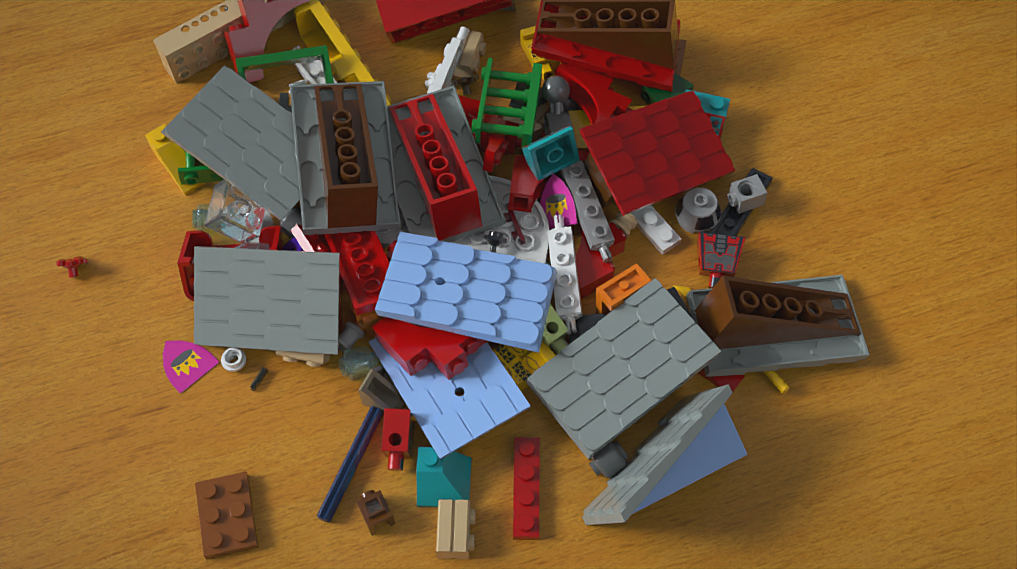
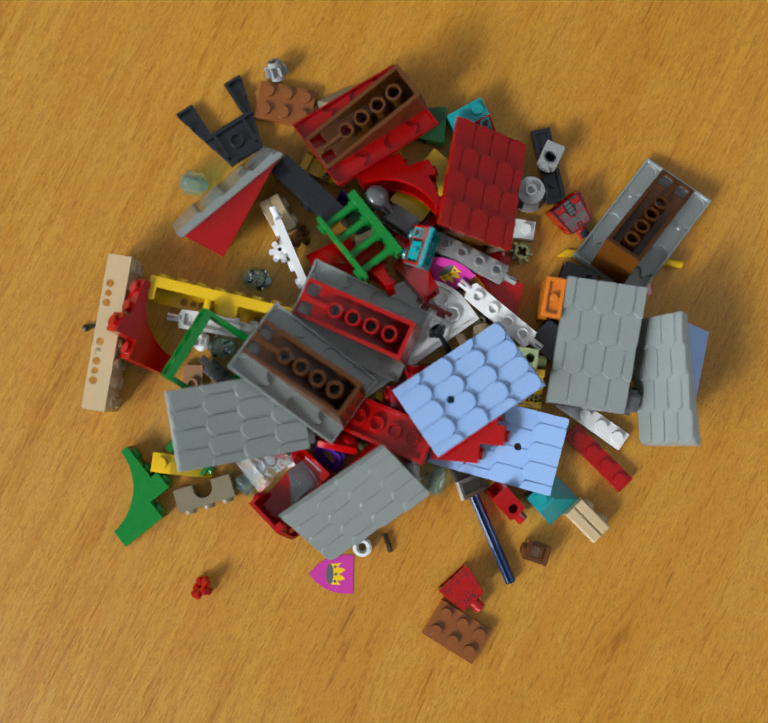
camera: 40 degrees left, 25 degrees up
(106, 165) = (144, 509): none -> green arch
(148, 189) = (189, 498): none -> dark tan arch
(274, 479) = (463, 589): none -> red torso
(396, 82) = (257, 279): none -> clear light blue head
(506, 44) = (305, 189): none -> black brick
(557, 455) = (597, 425): none -> white plate
(646, 251) = (519, 258): none -> olive gear

